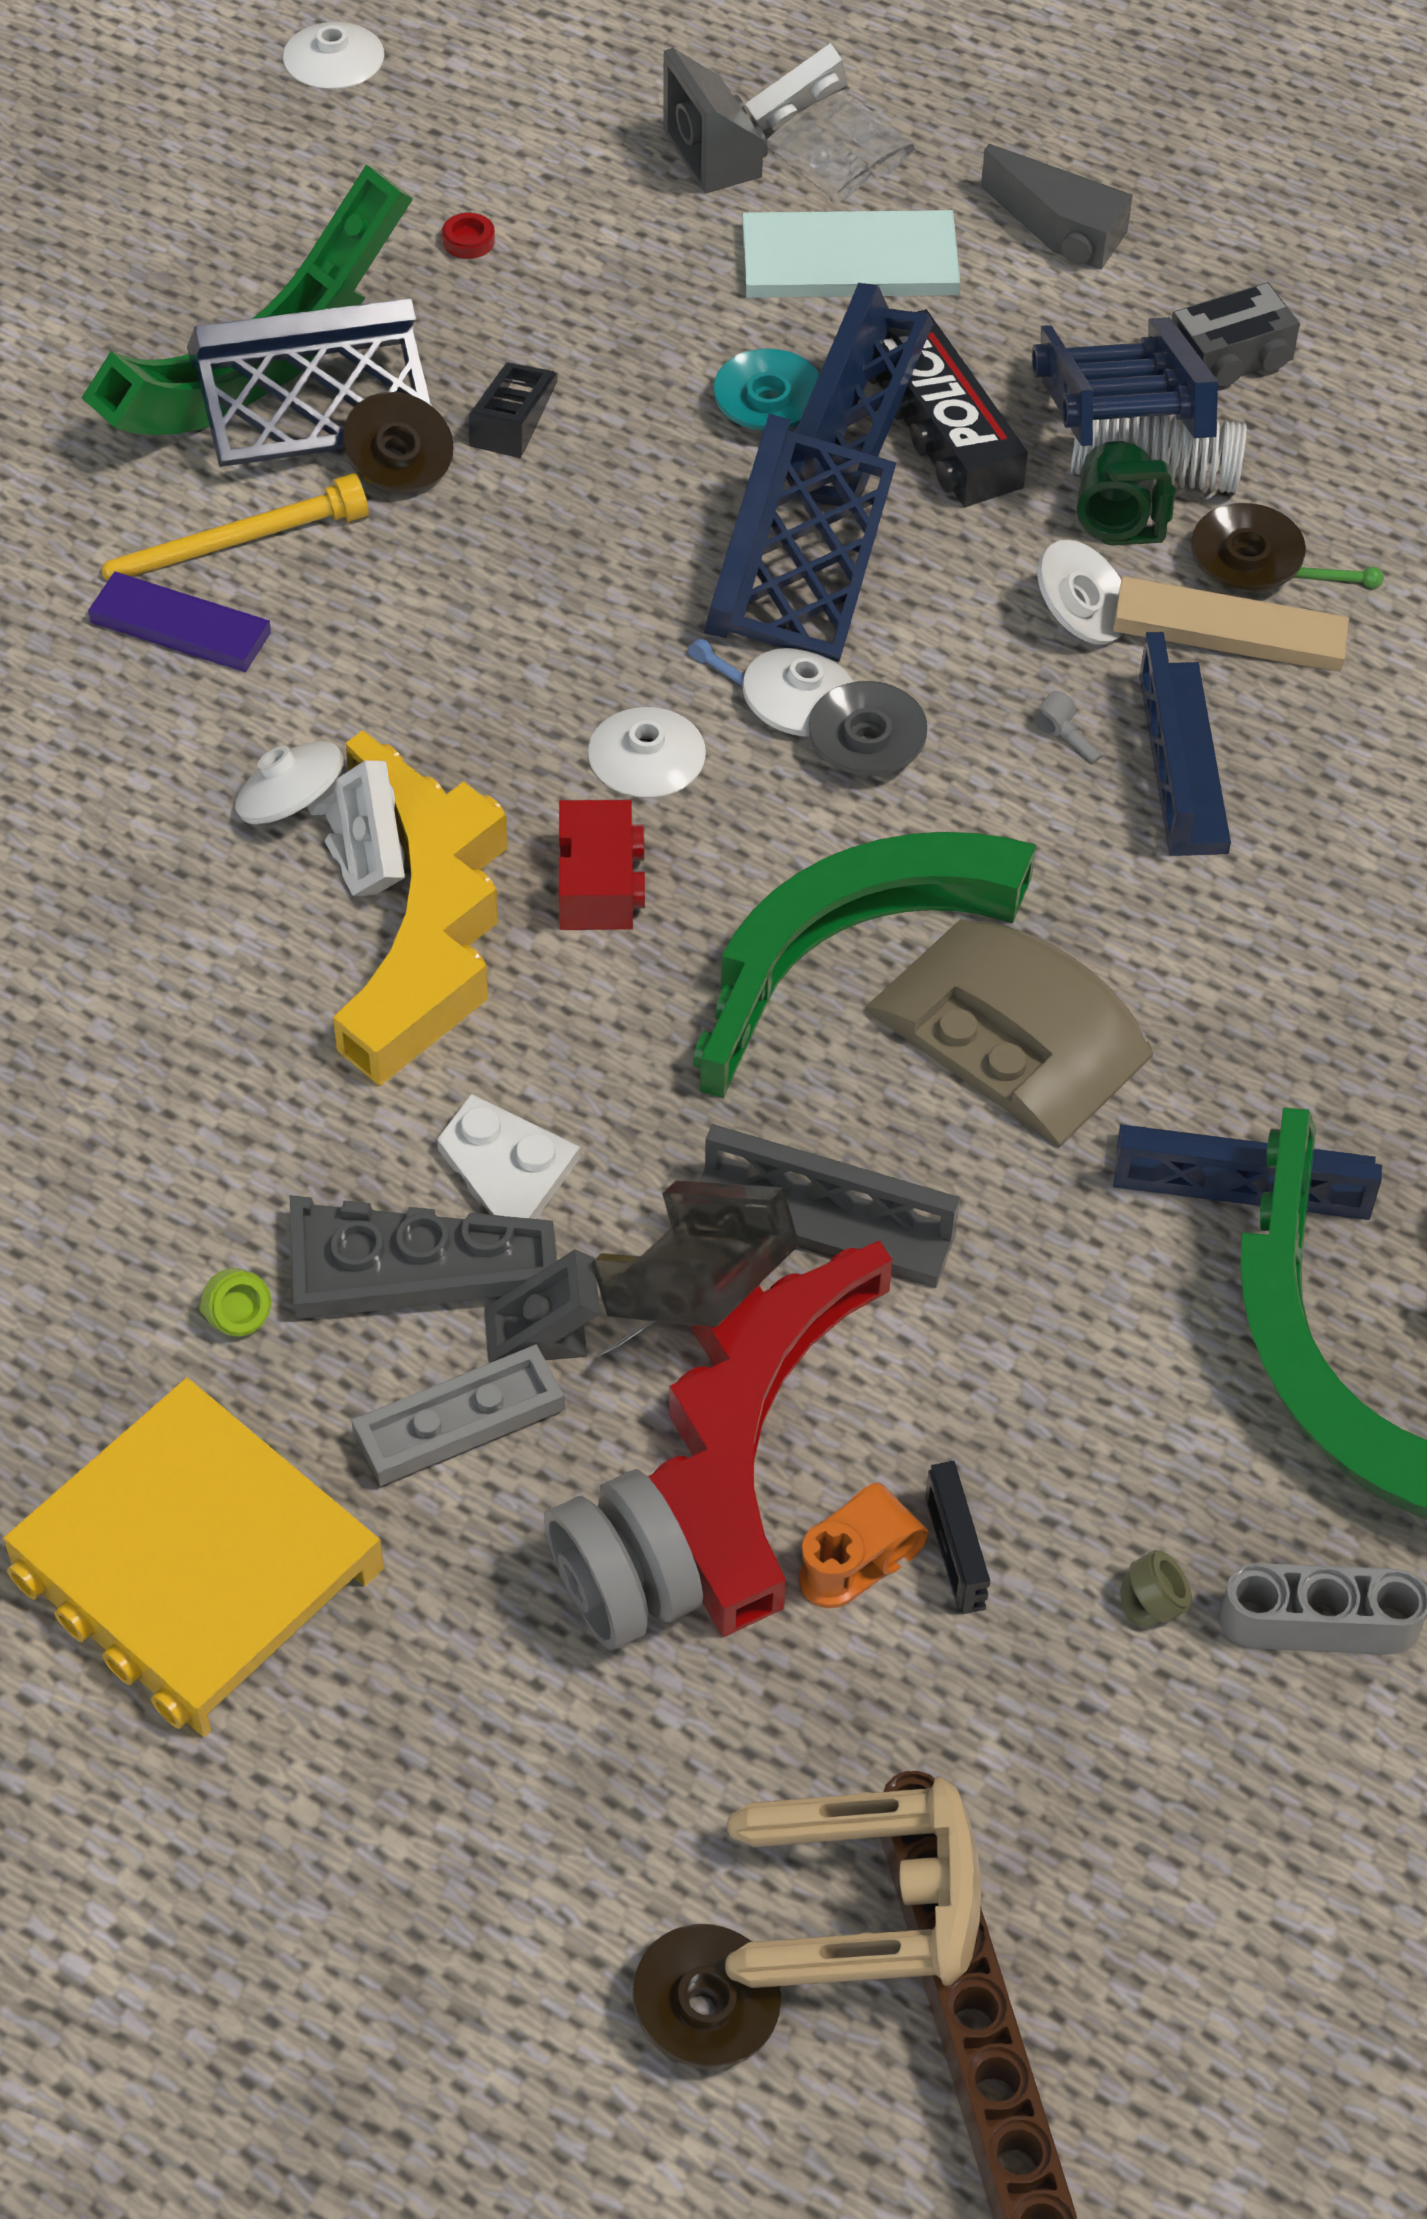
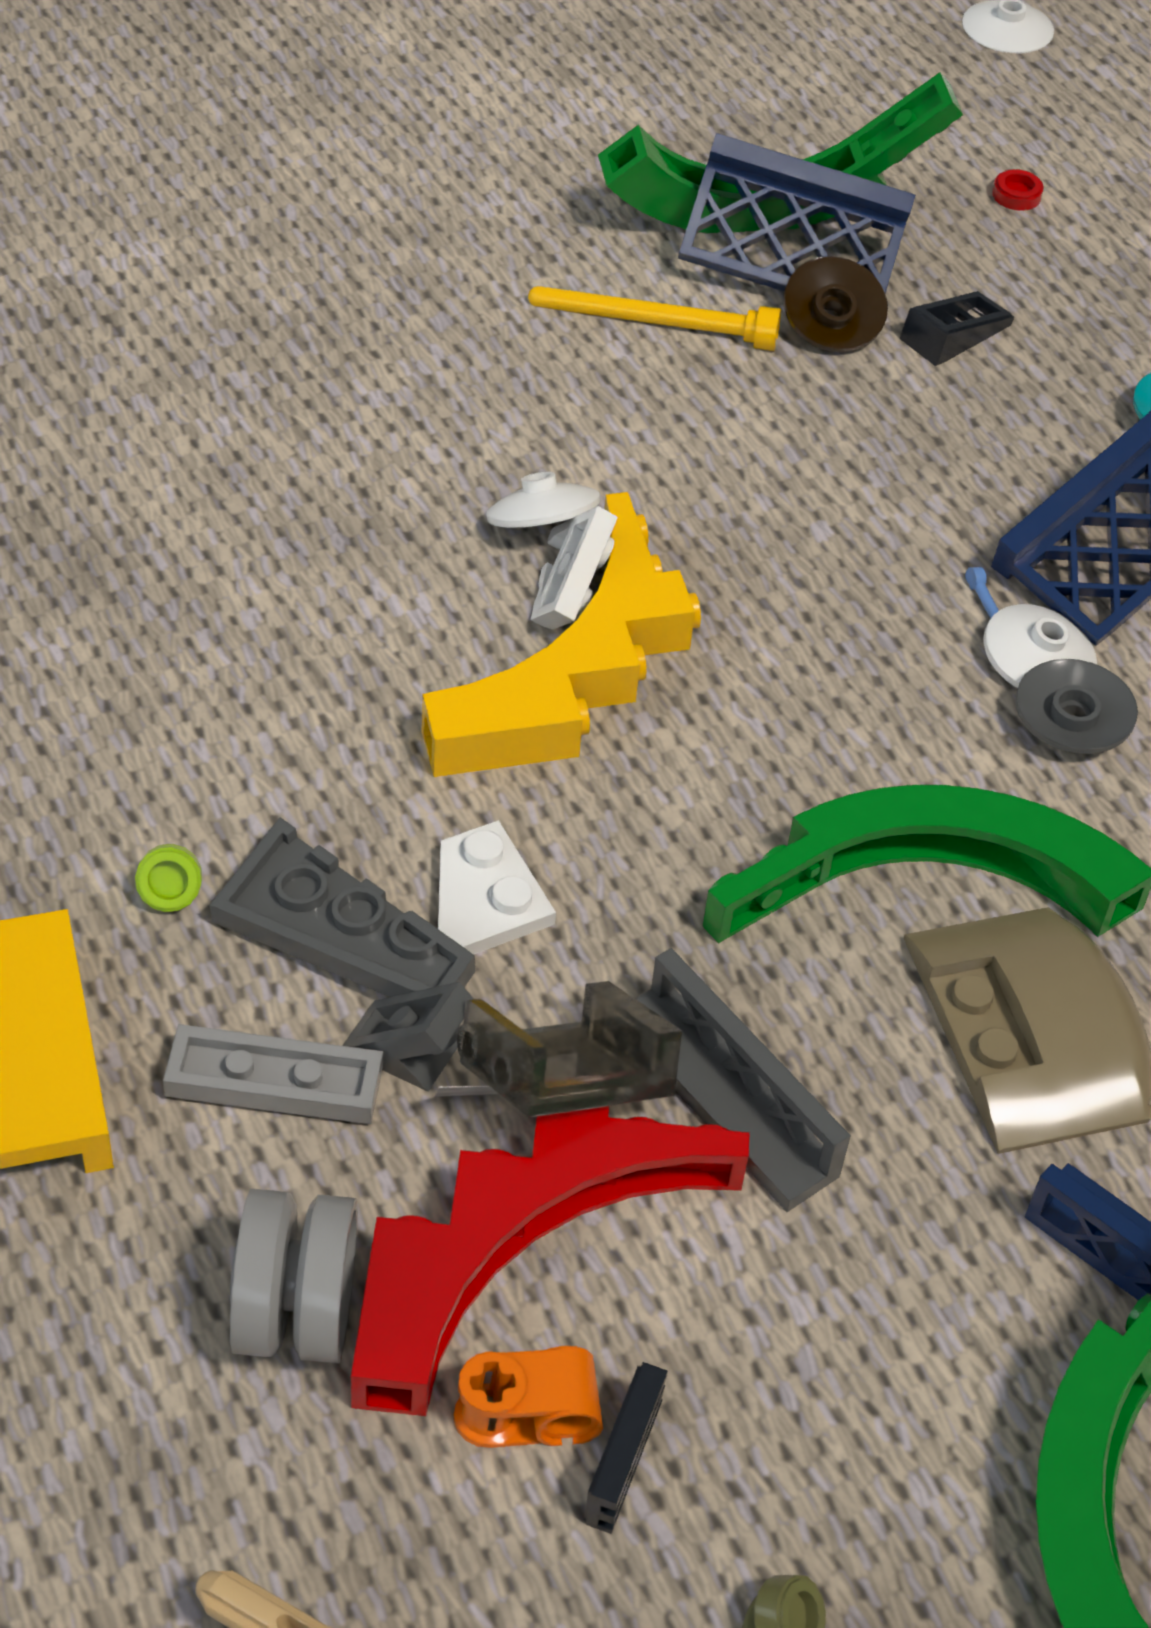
camera: 30 degrees right, 5 degrees down
(179, 621) = (560, 355): dark purple tile -> none
(597, 865) = (748, 701): red brick -> none
(646, 767) = (868, 634): white dish -> none

